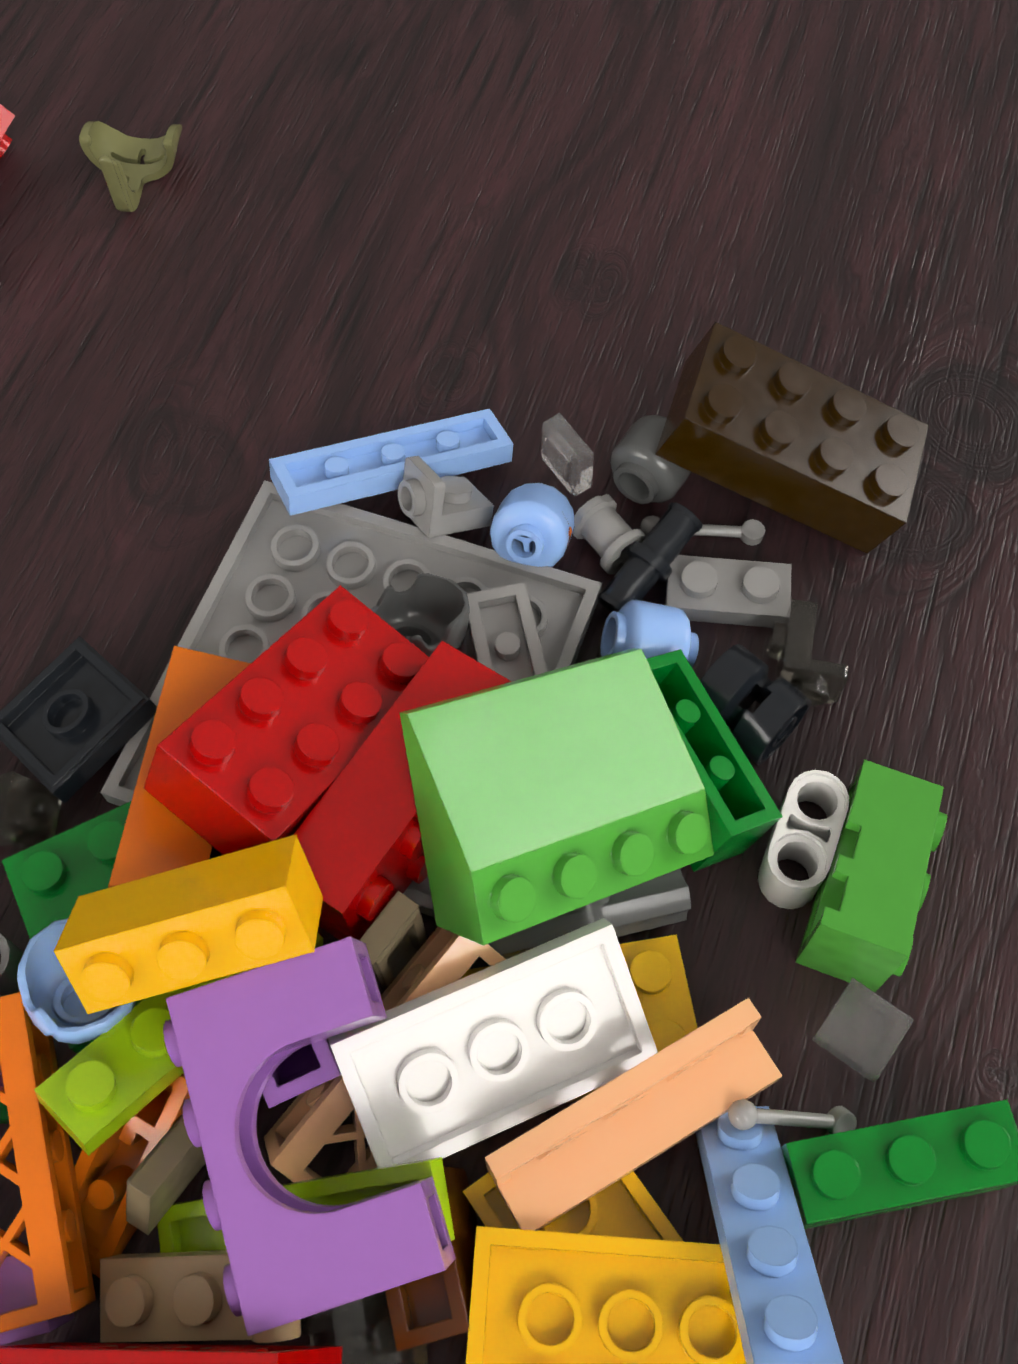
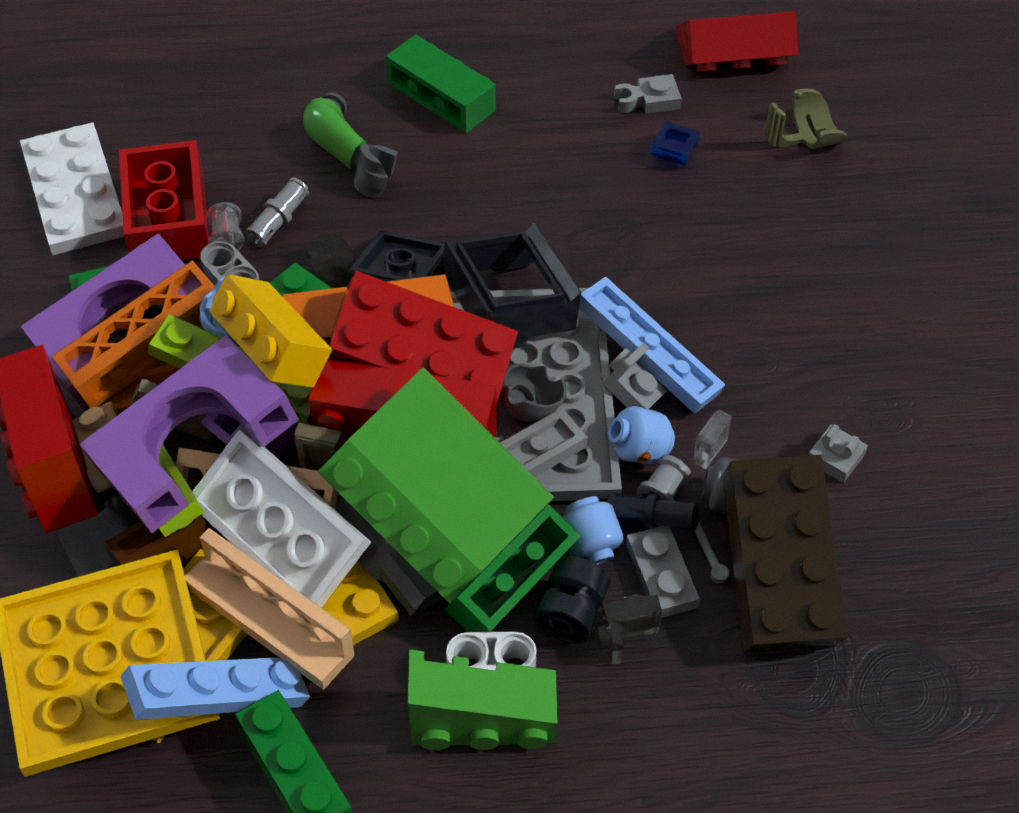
camera: 65 degrees right, 10 degrees down
(65, 305) = (675, 143): none -> clear blue plate
(222, 628) = (506, 252): none -> black piece
(636, 342) = (839, 452): none -> light grey tile
(745, 1115) = (289, 666): light grey hinge -> none
(863, 1030) = (381, 740): clear tile -> none

